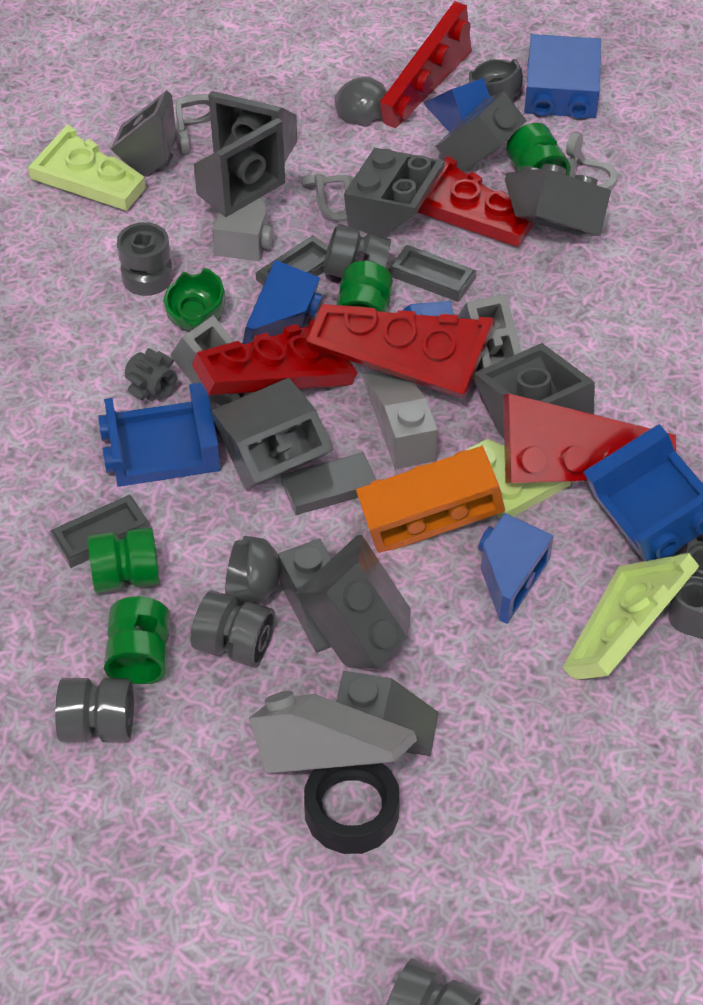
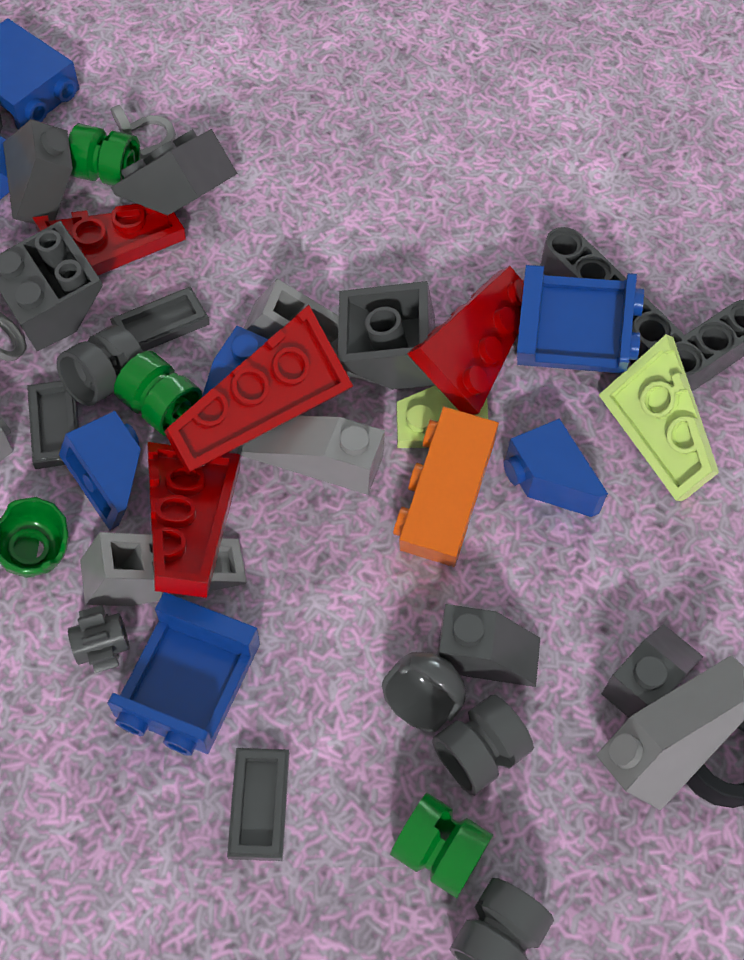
camera: 60 degrees left, 10 degrees up
(123, 560) = (331, 796): green wheel -> none
(271, 432) = (277, 571): dark grey slope -> none
(327, 483) = (350, 558): dark grey tile -> none
(357, 606) = (540, 621): dark grey slope -> none

